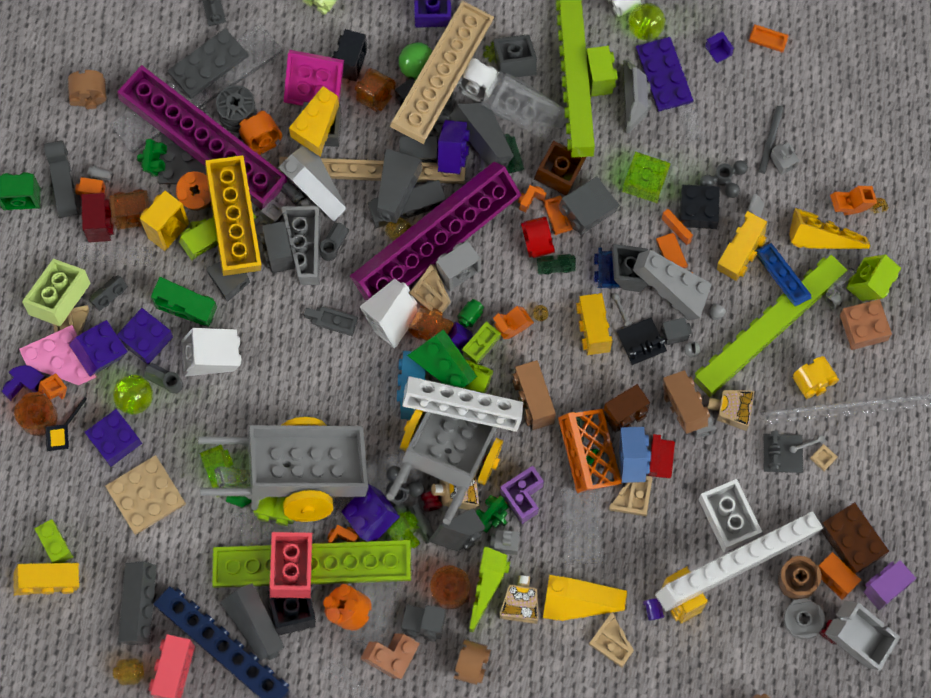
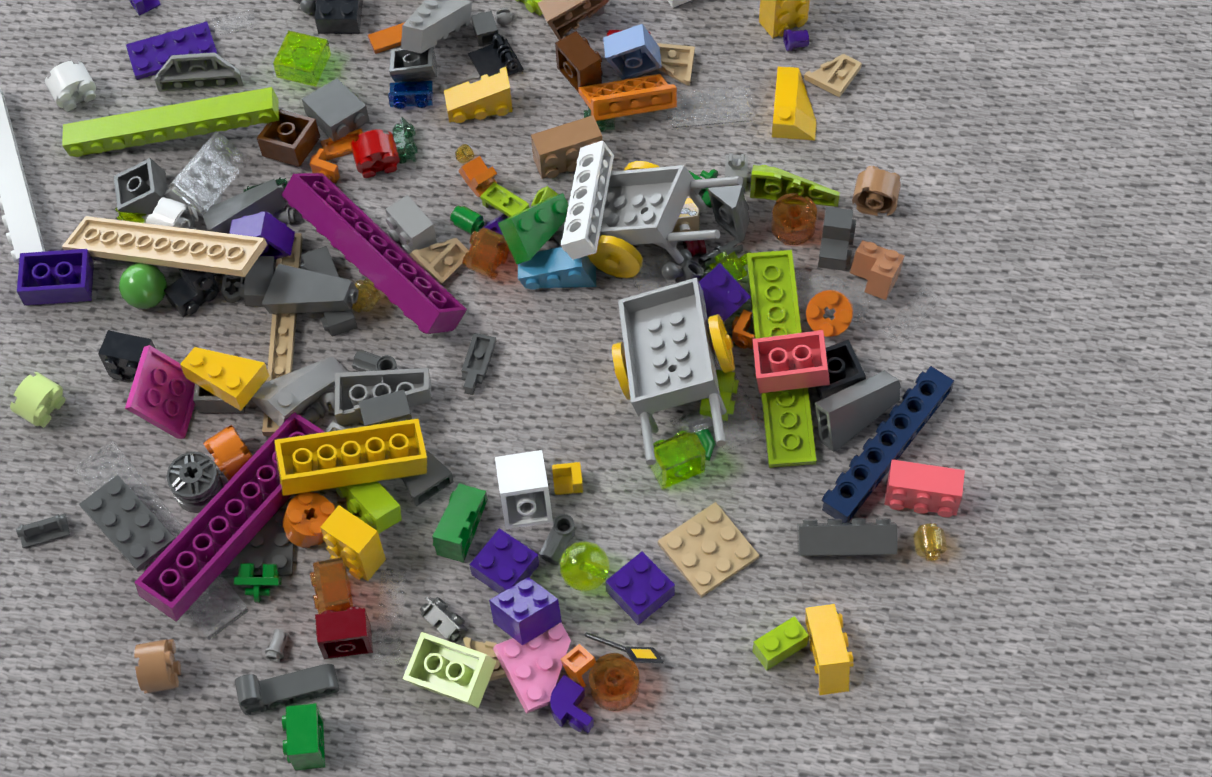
camera: 90 degrees left, 10 degrees down
(90, 186) = (301, 651): orange brick -> none
(217, 388) = (567, 478): none -> yellow panel
(374, 90) = (177, 328): clear orange brick -> none
(390, 311) = (471, 292): white slope -> none
(518, 494) = (694, 154): medium lavender brick -> none
(520, 602) = (802, 155): torso -> none
(600, 71) = (166, 92): lime brick -> none
(646, 21) = (107, 62): clear neon green piece -> none
(677, 227) = (361, 30): orange tile -> none

